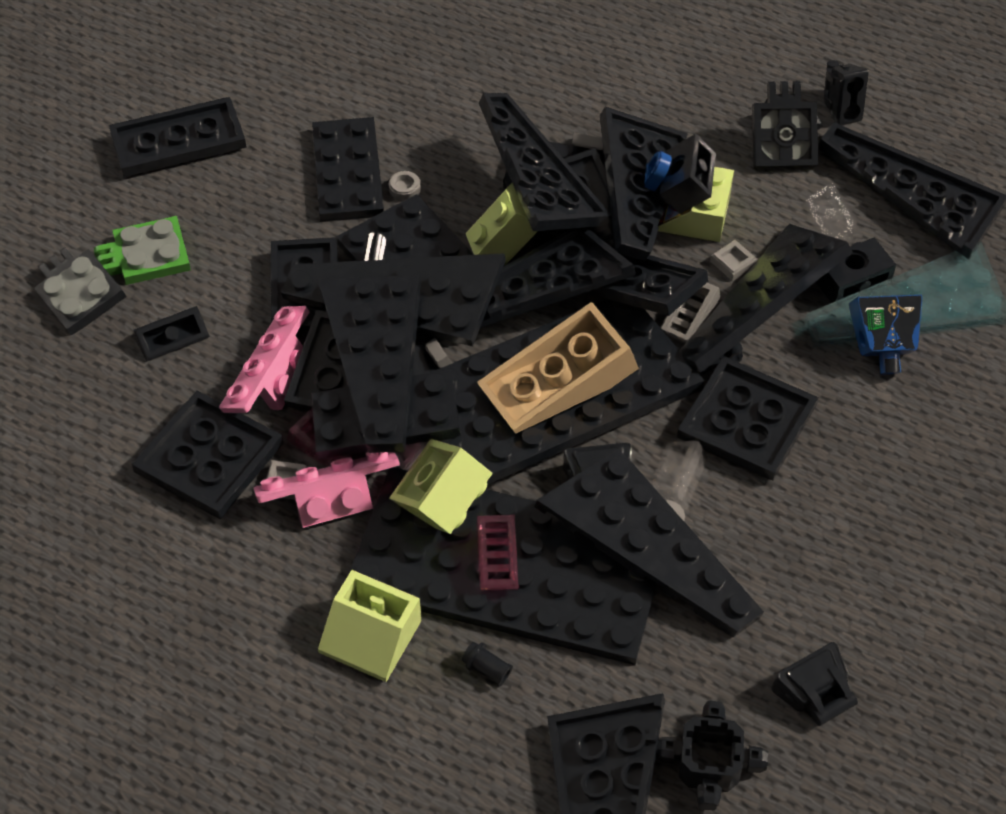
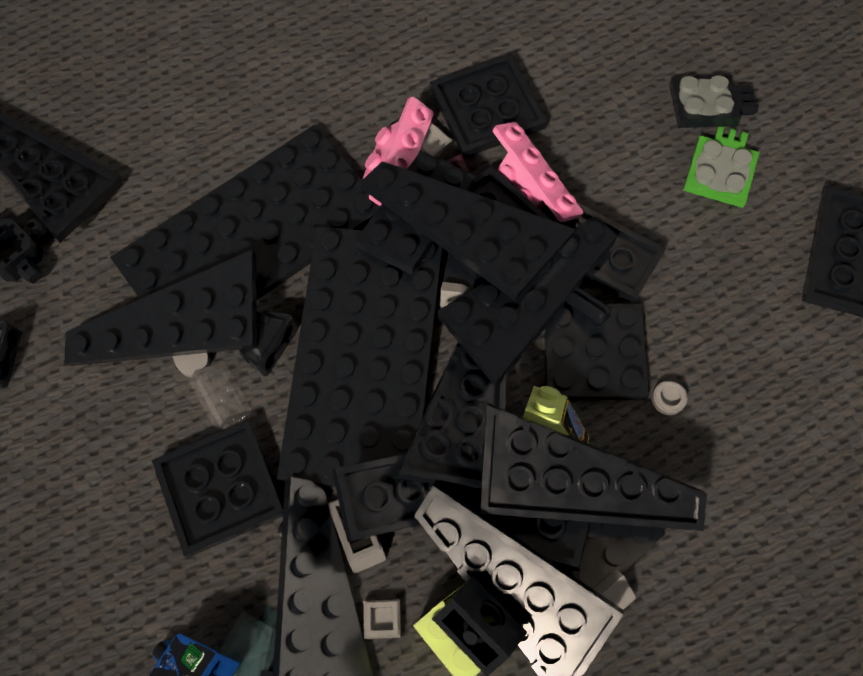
camera: 130 degrees right, 15 degrees up
(171, 333) = (623, 142): black slope -> none
(347, 169) = (723, 365): black plate -> none
(370, 625) = (269, 119): yellowish green slope -> none
(442, 485) = (321, 202): yellowish green slope -> none
(486, 663) = (188, 170): black pin -> none
(497, 524) = (267, 226): clear pink slope -> none
(559, 370) = (352, 354): tan slope -> none
(657, 170) = (505, 599): blue tile -> none

